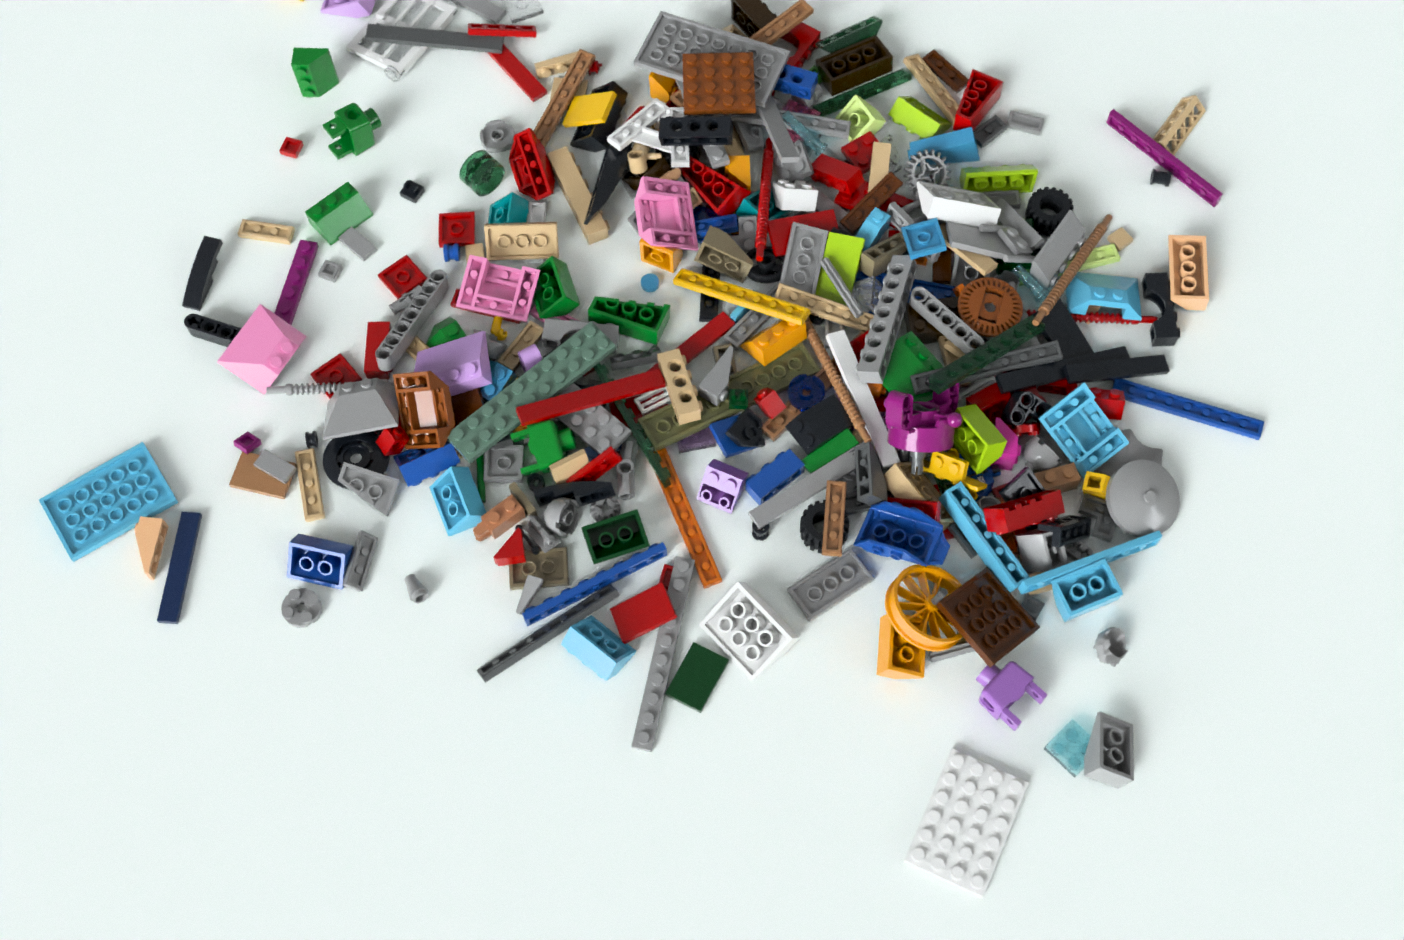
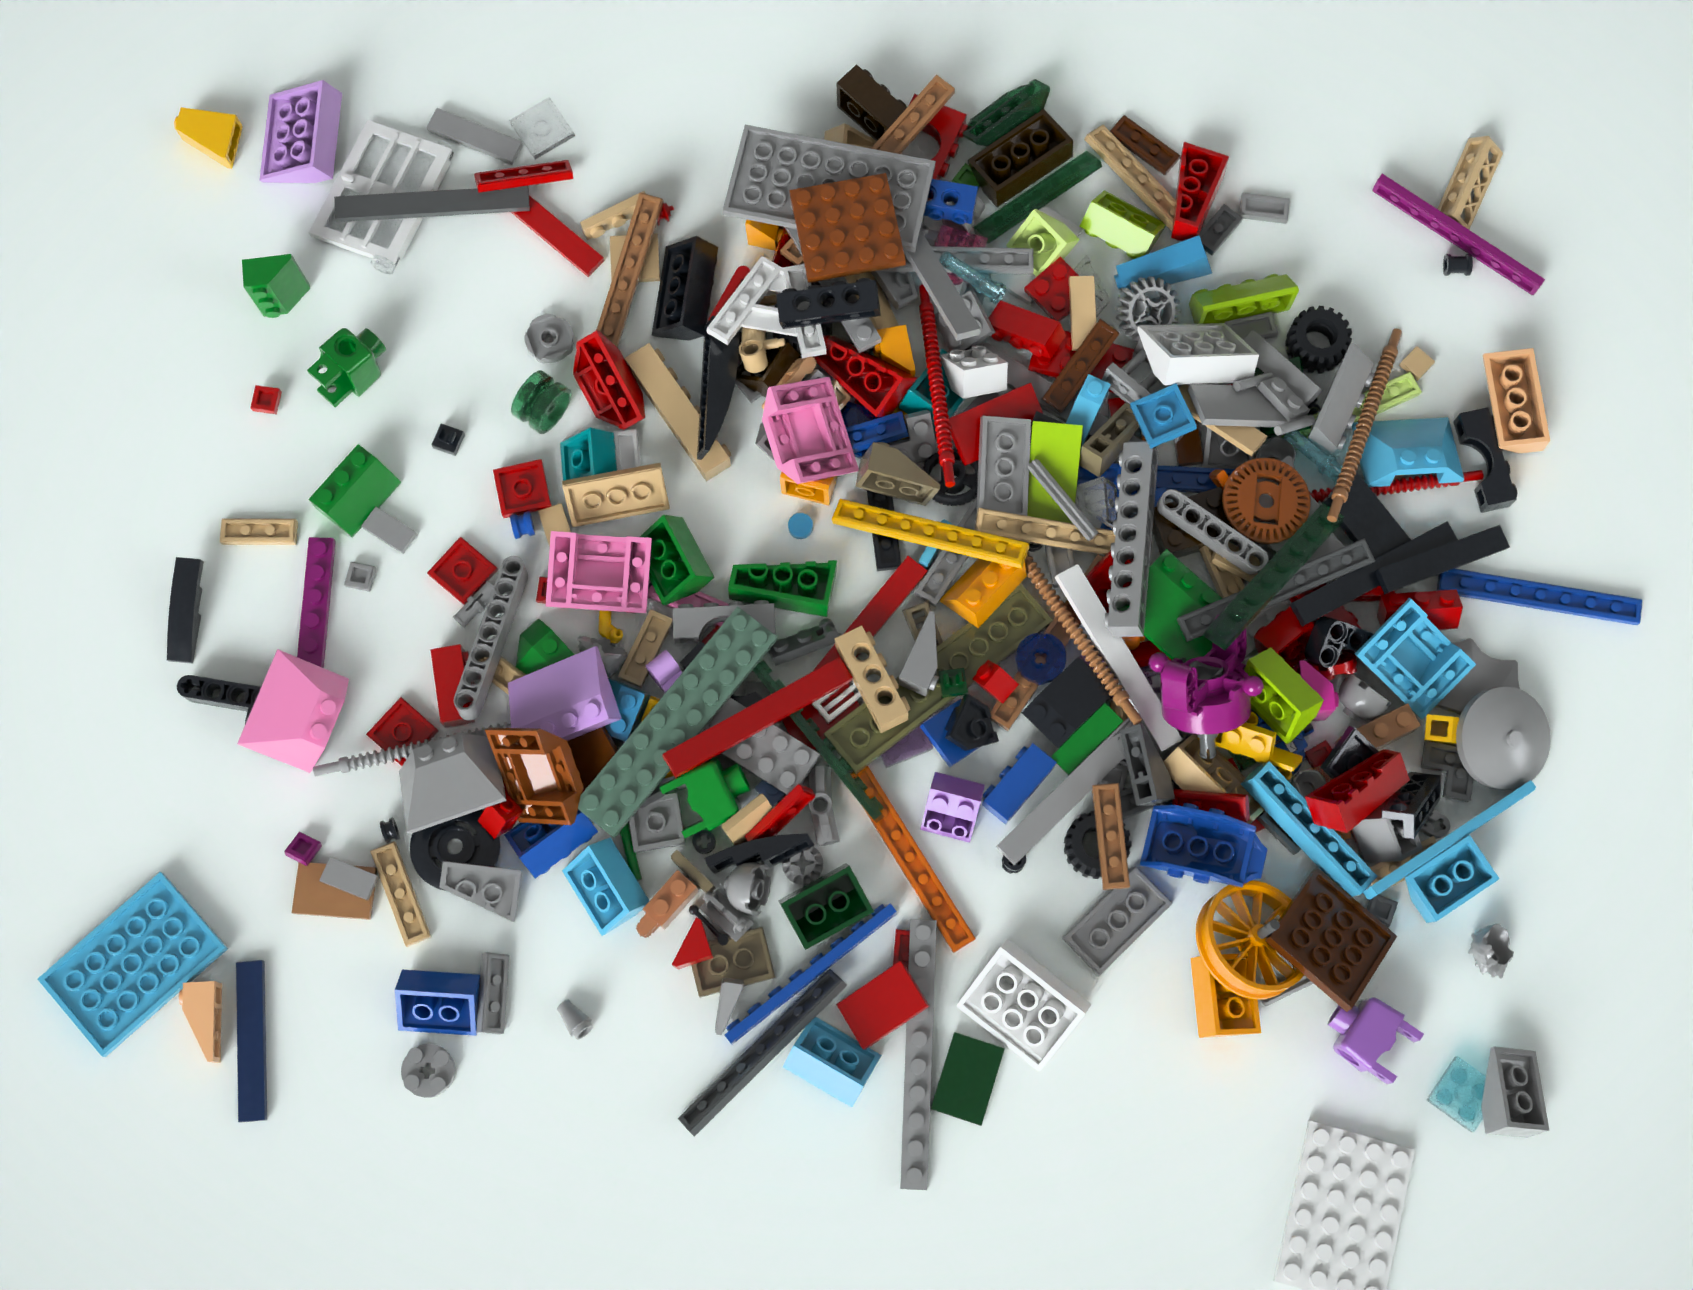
camera: 10 degrees left, 10 degrees up
(589, 109) = (671, 283): yellow tile -> none

